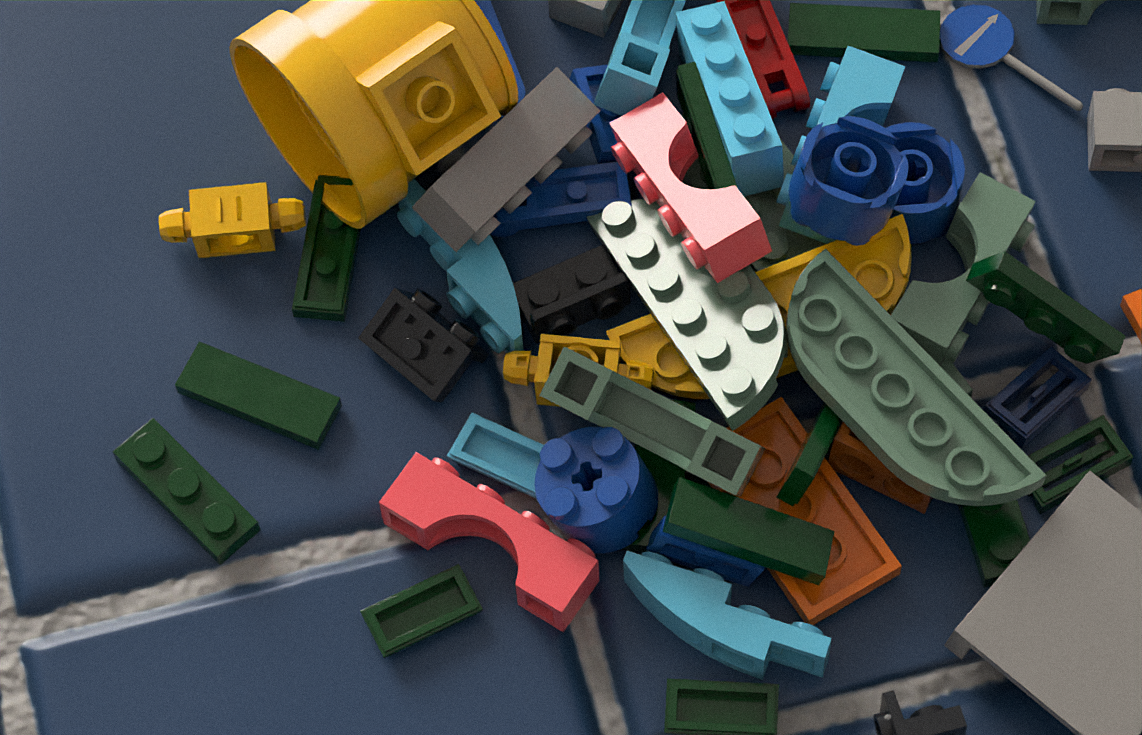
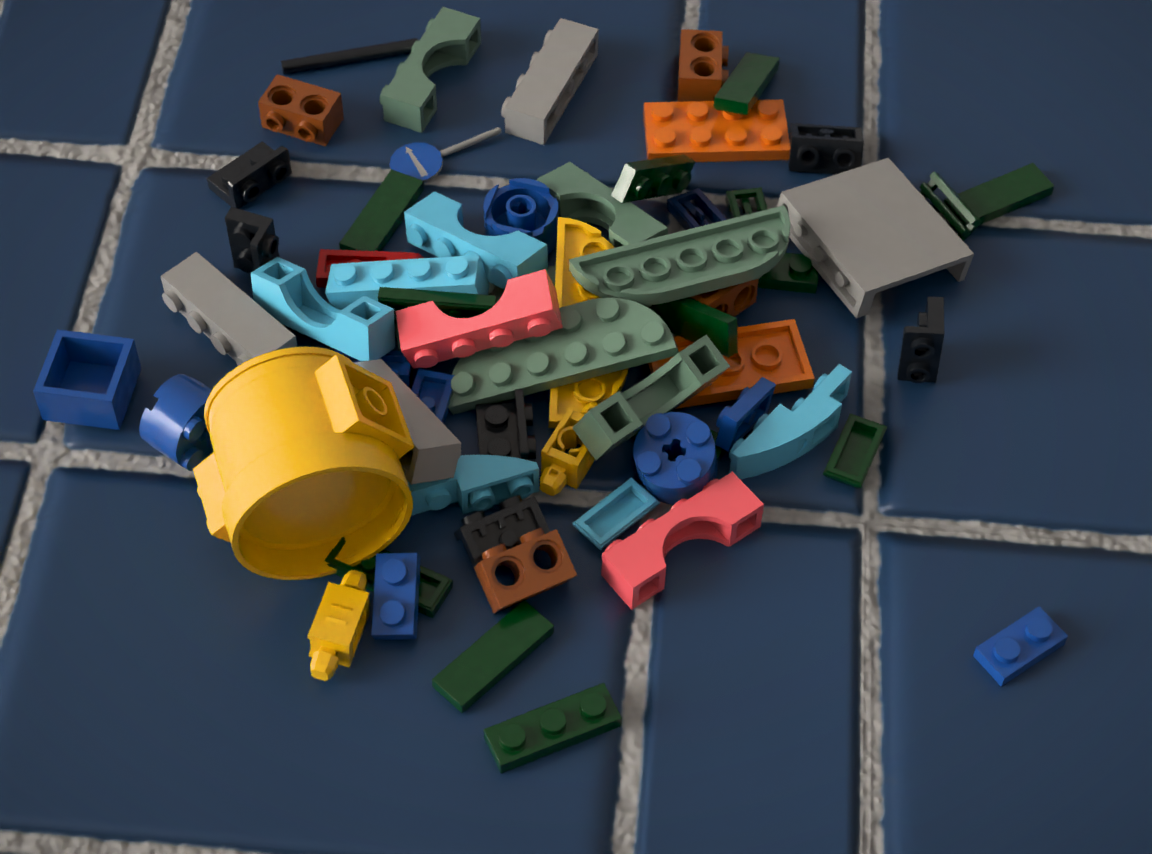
camera: 75 degrees left, 10 degrees down
(291, 262) = (396, 596): none -> blue plate
(365, 387) = (528, 577): none -> dark orange brick
(421, 610) = (716, 601): dark green tile -> none
(748, 531) = (749, 377): dark green tile -> none
(847, 180) = (532, 222): blue brick -> none

